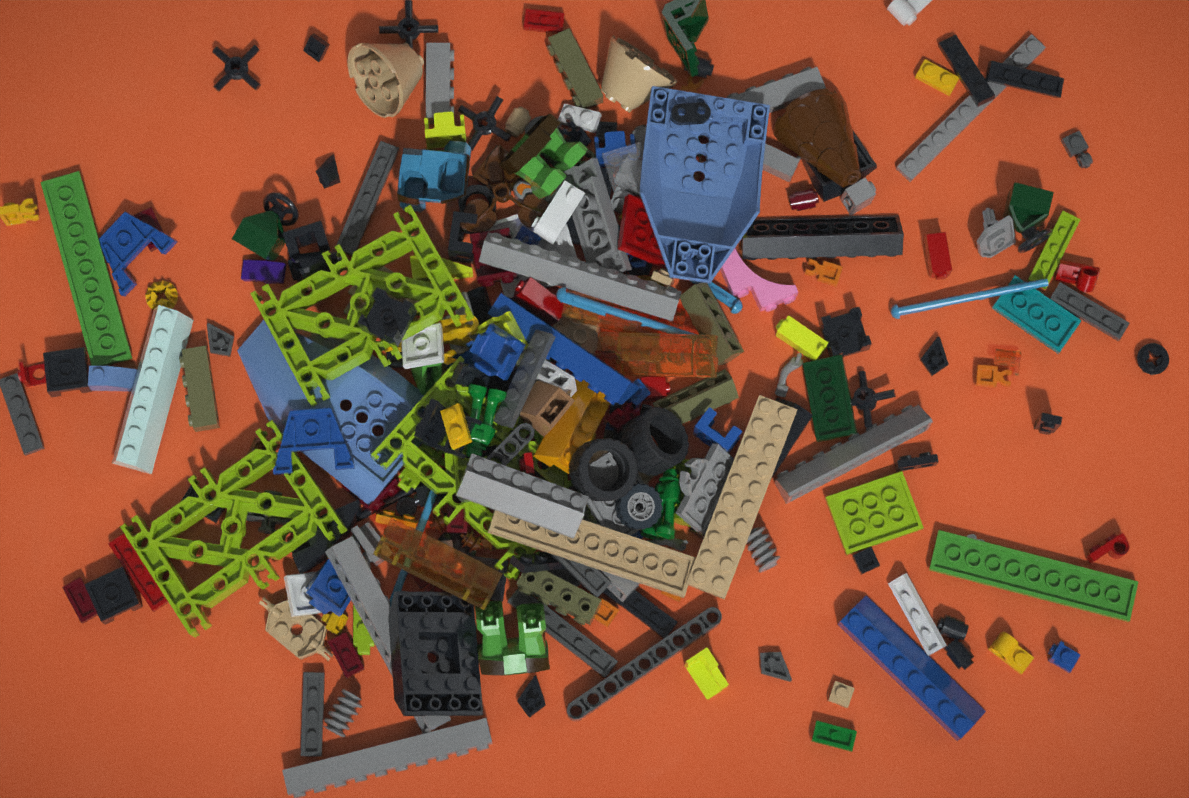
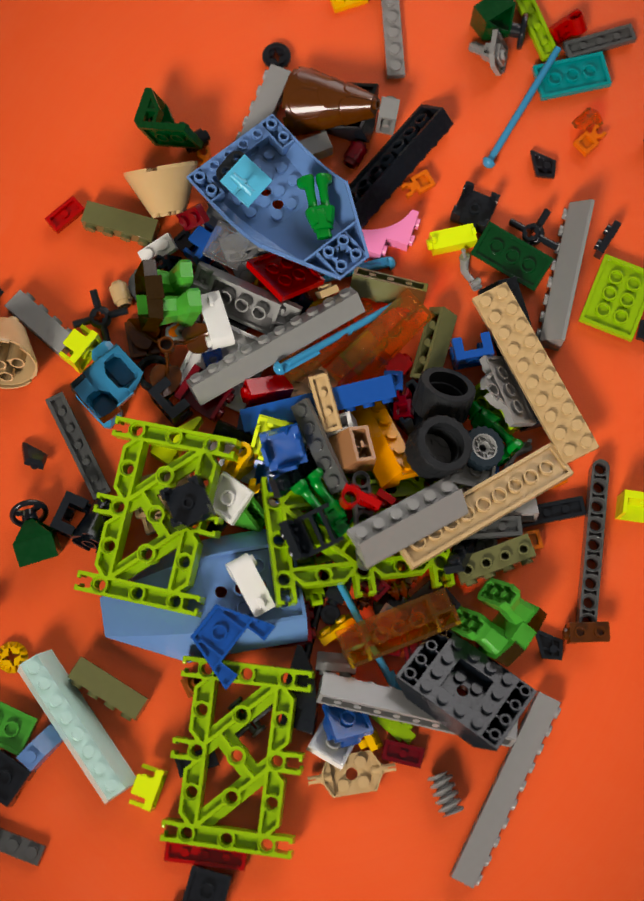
camera: 45 degrees left, 0 degrees up
(152, 484) = (148, 787): none -> neon yellow panel
(219, 341) = (85, 643): dark grey piece -> none
(264, 271) = (63, 566): dark purple slope -> none
(312, 714) = (426, 817): dark grey plate -> none
(370, 421) = (250, 584): none -> white door
(456, 426) = (315, 524): yellow plate -> none
(512, 452) = (366, 500): none -> red plate
(563, 353) = (325, 402): none -> tan tile
(567, 717) = (586, 632): none -> reddish brown bracket
(570, 637) = (528, 580): dark grey plate -> none
(625, 120) = (192, 217): none -> dark red plate
(688, 134) = (246, 180): none -> medium azure plate
(710, 217) = (319, 216): none -> green piece
(762, 549) = (582, 393): light grey piece -> none
(828, 57) = (281, 50): none -> black gear
(938, 255) = (475, 101): red brick -> none

